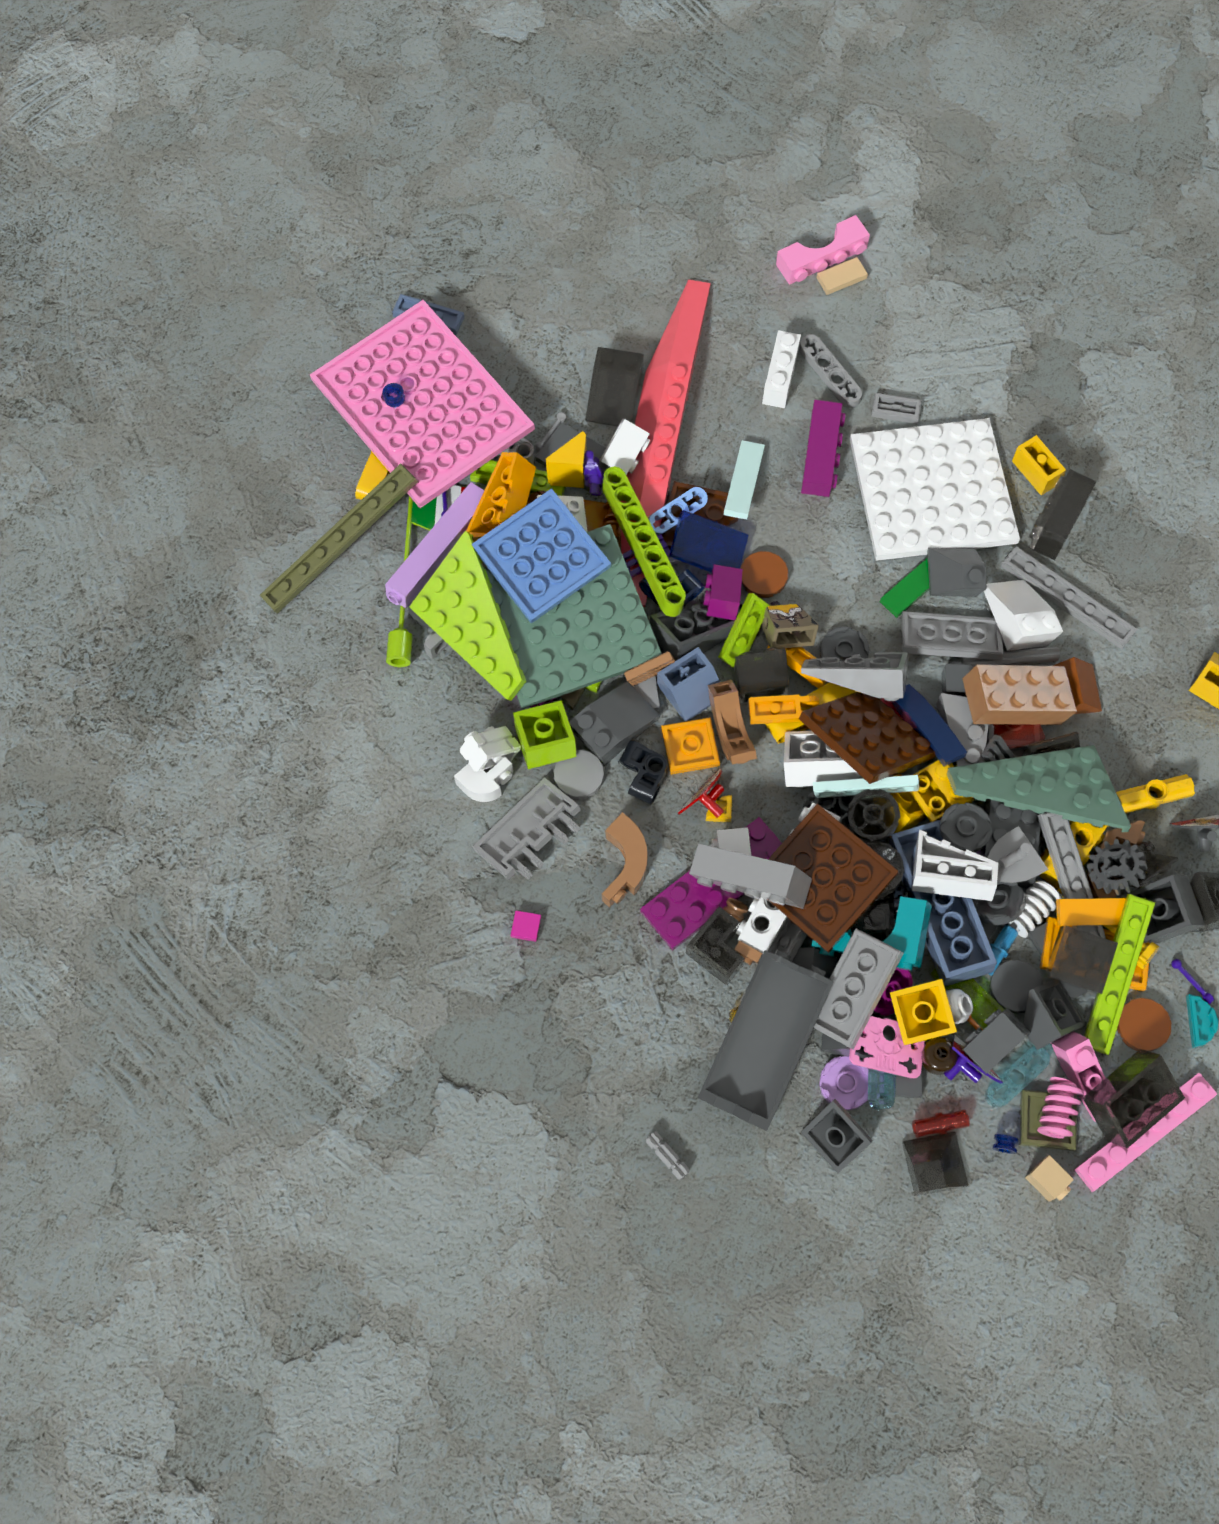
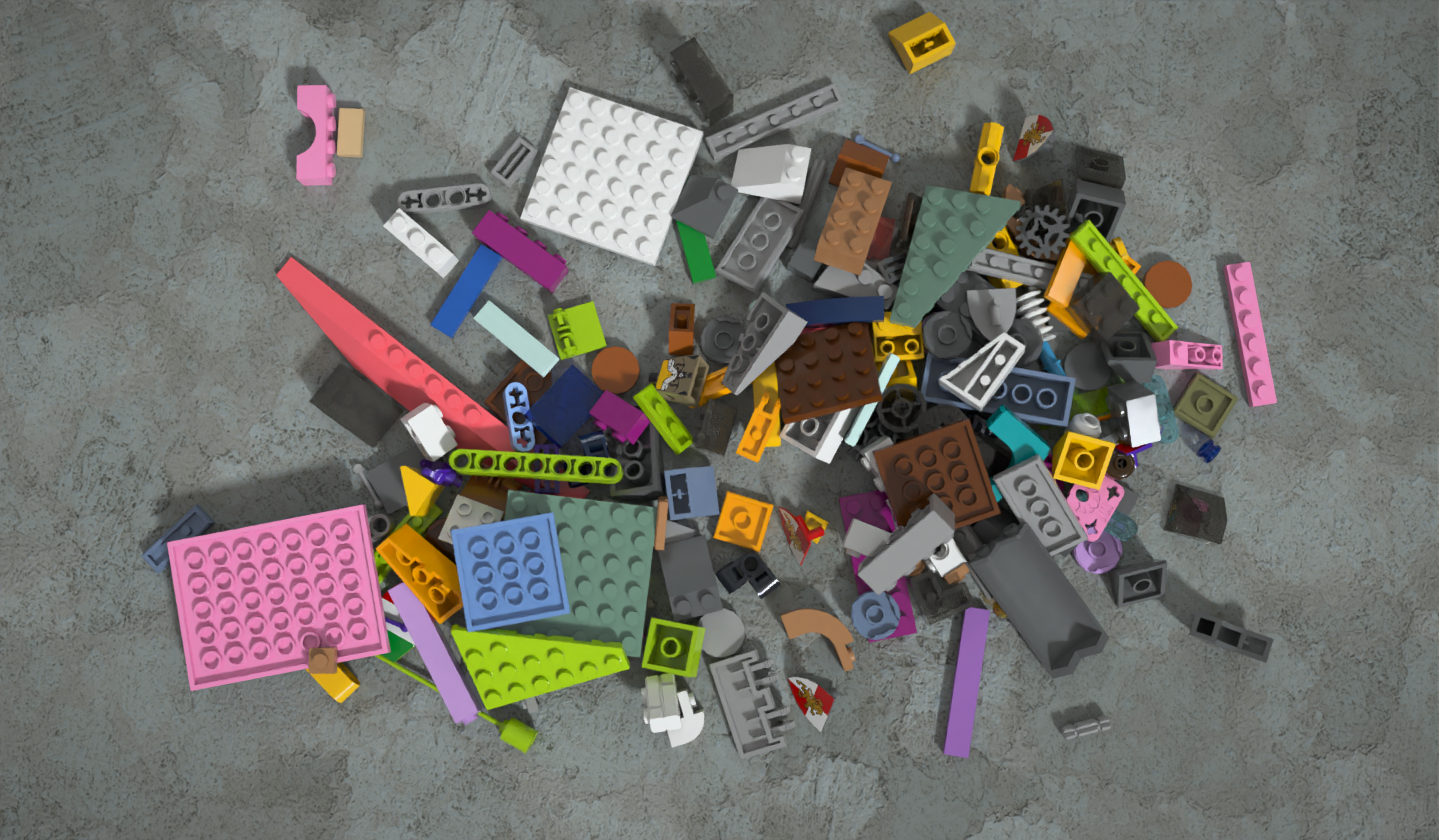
camera: 65 degrees left, 15 degrees up
(338, 538) = (380, 740): olive tile -> none
(386, 456) = (322, 660): none -> medium nougat plate
(390, 400) = (255, 616): clear blue bush -> none
(526, 926) = (834, 747): dark pink tile -> none
(561, 882) = (813, 699): none -> shield
(650, 1018) = (966, 682): none -> medium lavender tile
(668, 897) = (875, 615): none -> sand blue tile
(729, 723) = (747, 478): medium nougat arch -> none
(762, 425) = (466, 291): none -> blue tile
(780, 526) = (576, 330): none -> lime hinge
(832, 1250) = (1230, 637): none -> dark grey arch
(833, 607) = (681, 329): none -> dark orange slope
(940, 1123) = (1167, 492): clear red pin -> none
(1038, 465) = (642, 73): yellow brick -> none
(1050, 1179) = (1252, 432): tan brick -> none
(1059, 1108) = (1209, 393): bright pink piece -> none
(1103, 715) = (860, 140): none -> sand blue hinge
(1134, 1098) = (1229, 331): clear smoke brick -> none
(1177, 964) = (1131, 227): dark purple hinge -> none
(1202, 1020) = (1185, 236): teal tile -> none

